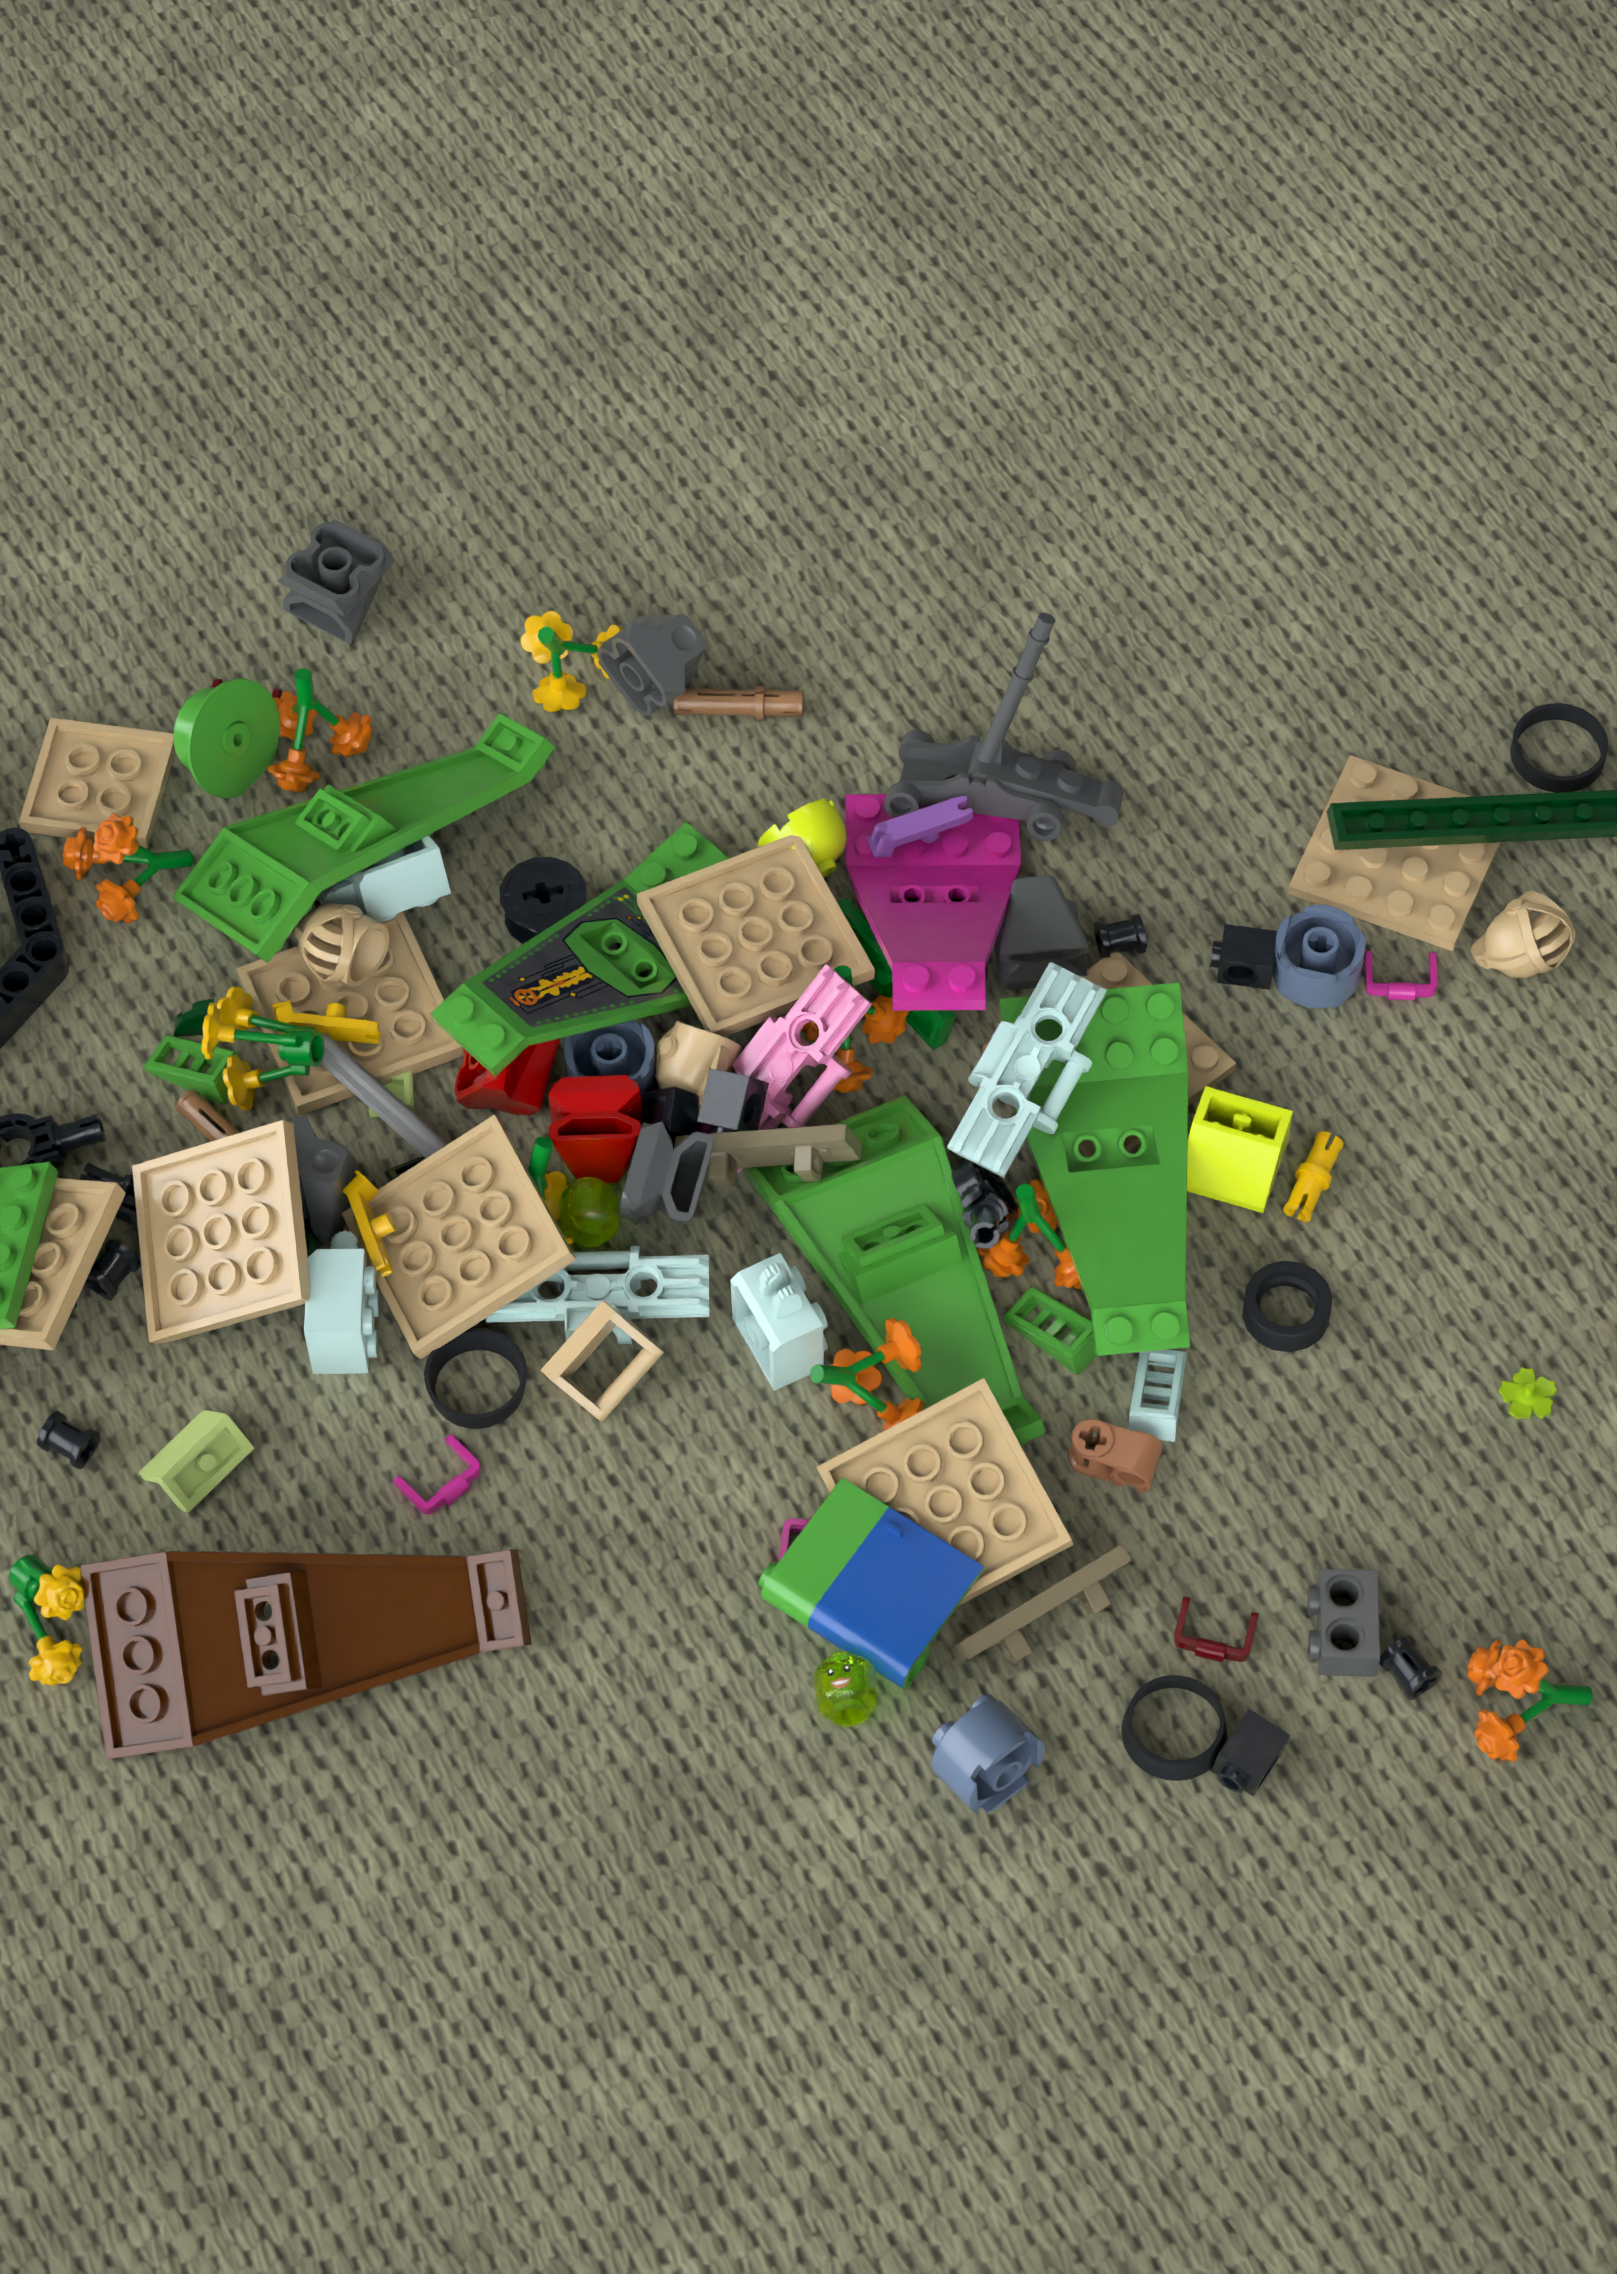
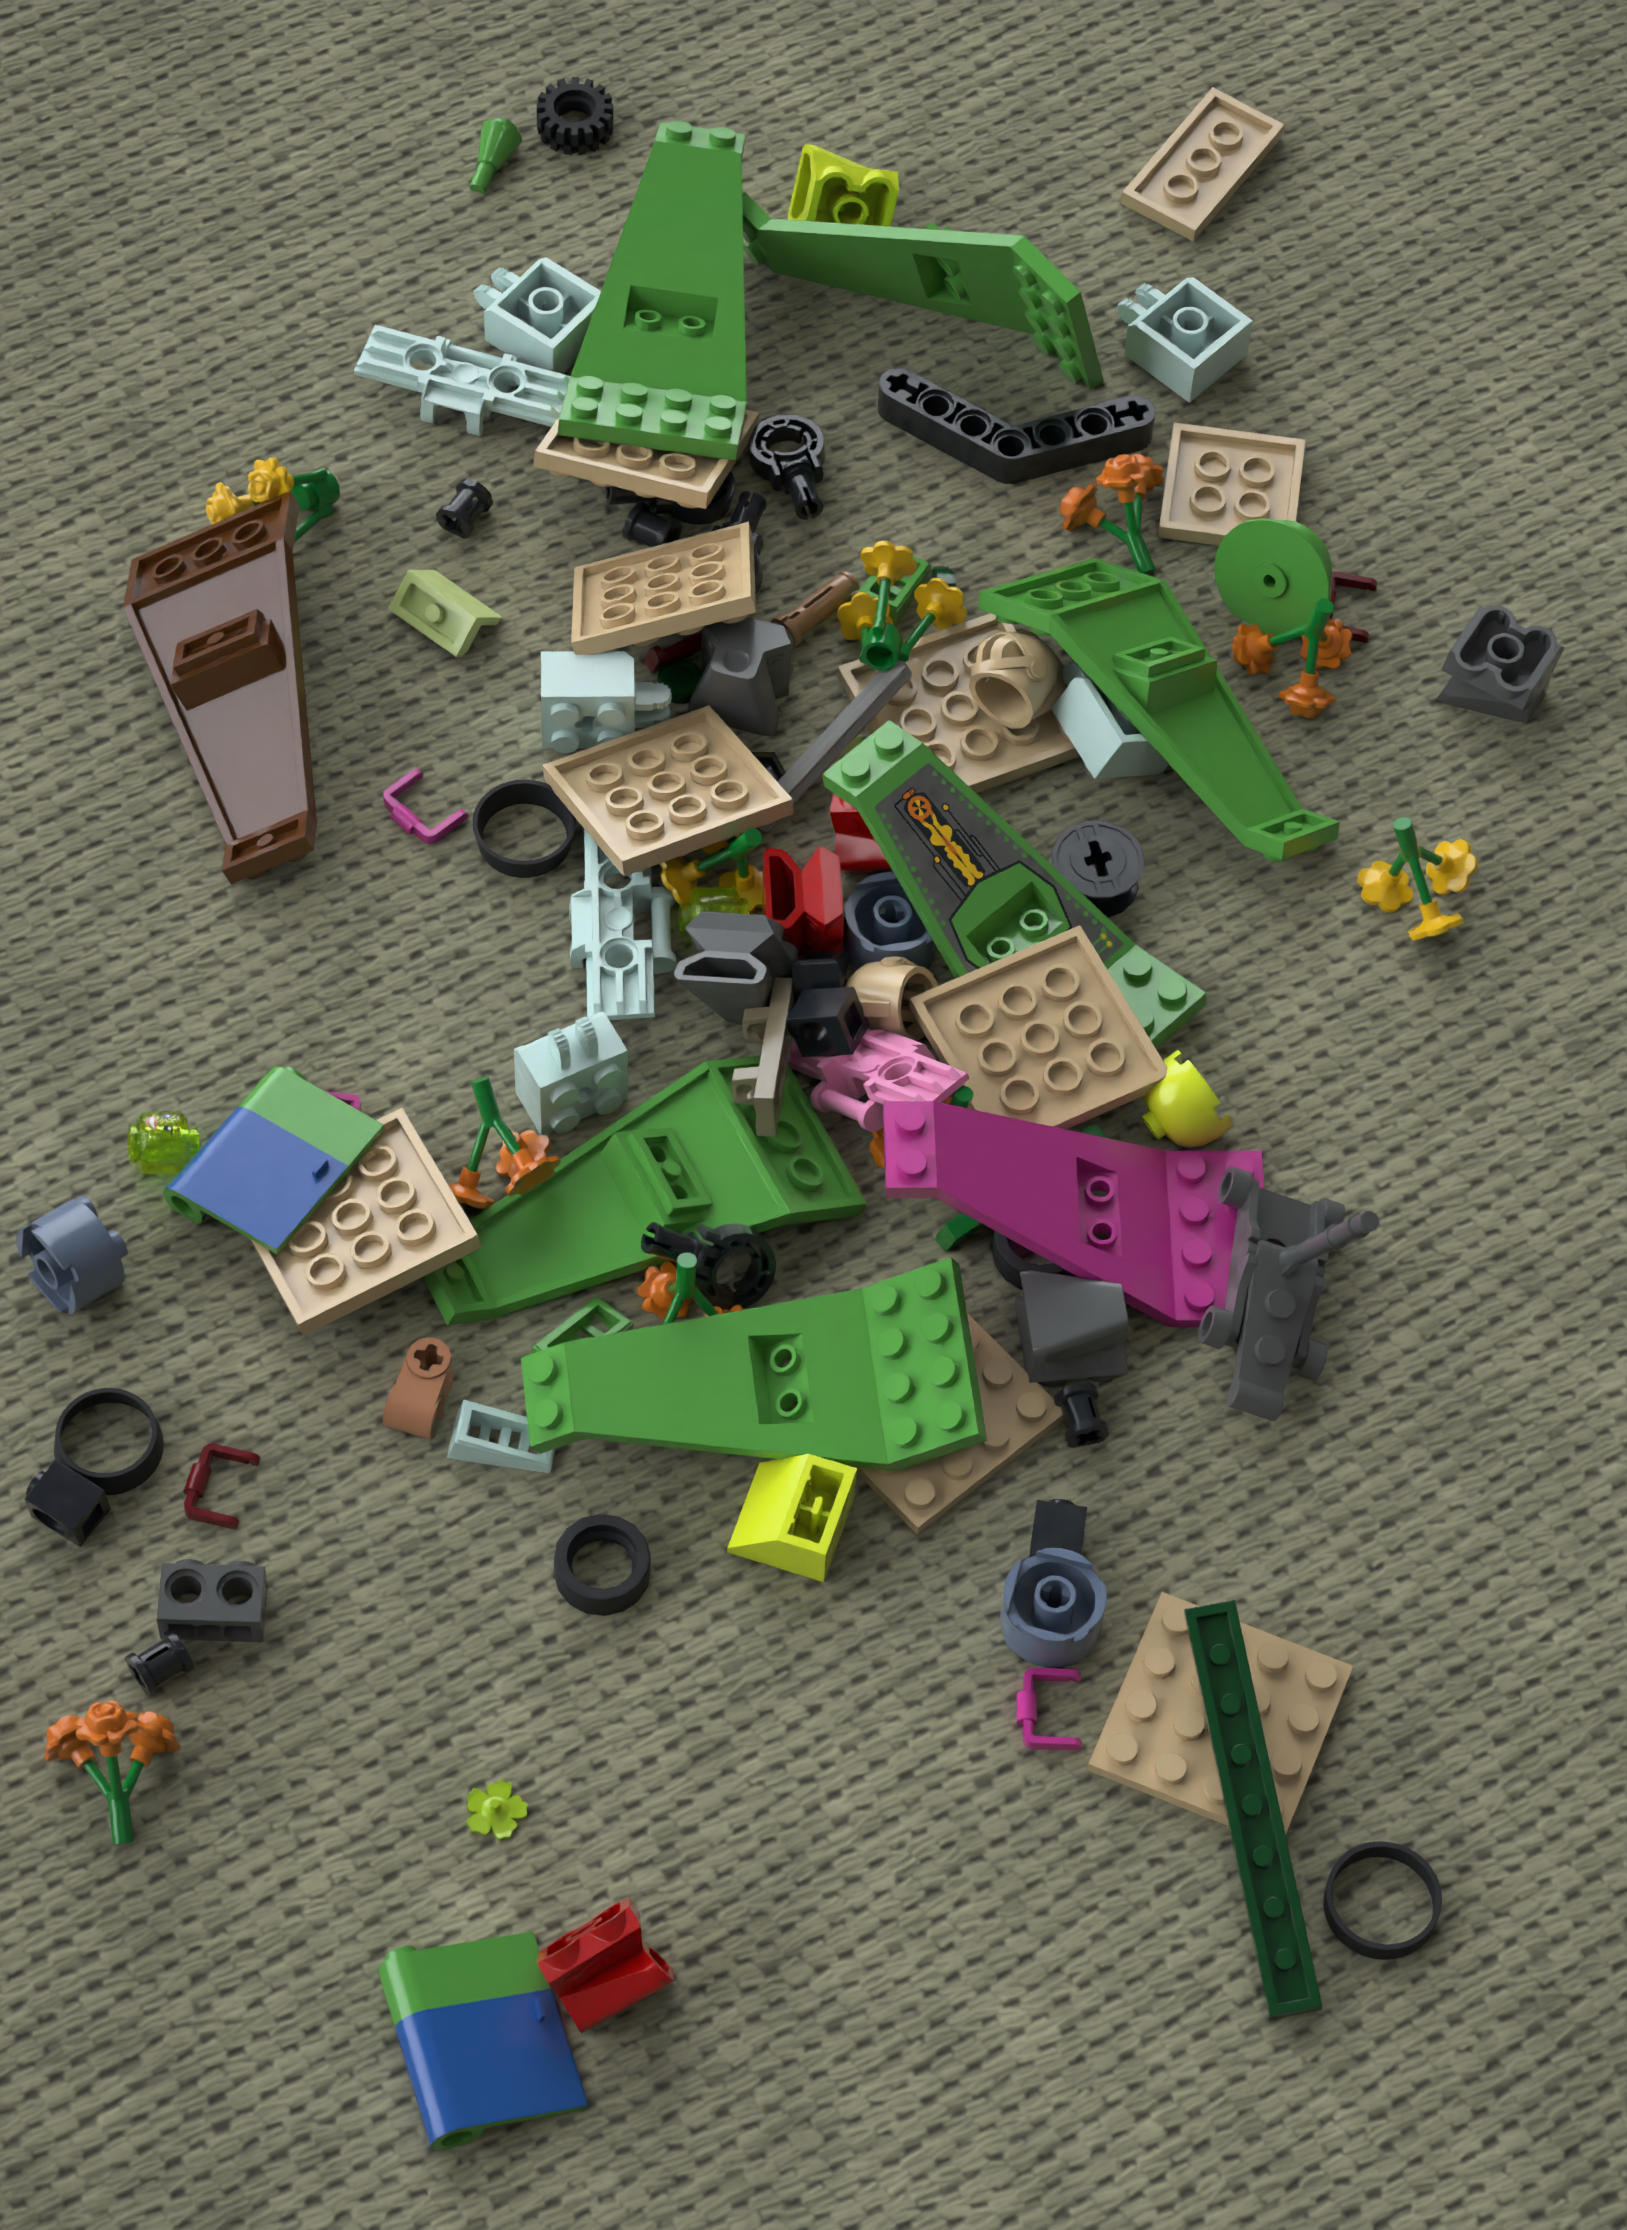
camera: 85 degrees right, 0 degrees up
(333, 1023) = (934, 648): yellow piece -> none
(372, 1229) = (683, 717): yellow piece -> none
(581, 1346) = (525, 893): tan tile -> none
(653, 659) = (1406, 946): dark grey piece -> none
(746, 702) = (1381, 1066): medium nougat pin -> none
(919, 824) = (1203, 1204): medium lavender piece -> none
(1014, 1065) = (861, 1264): light aqua piece -> none
(1082, 1584) = (270, 1354): dark tan hinge -> none
(1313, 1176) = (769, 1600): yellow pin -> none
(1525, 943) = (1089, 1832): tan helmet -> none

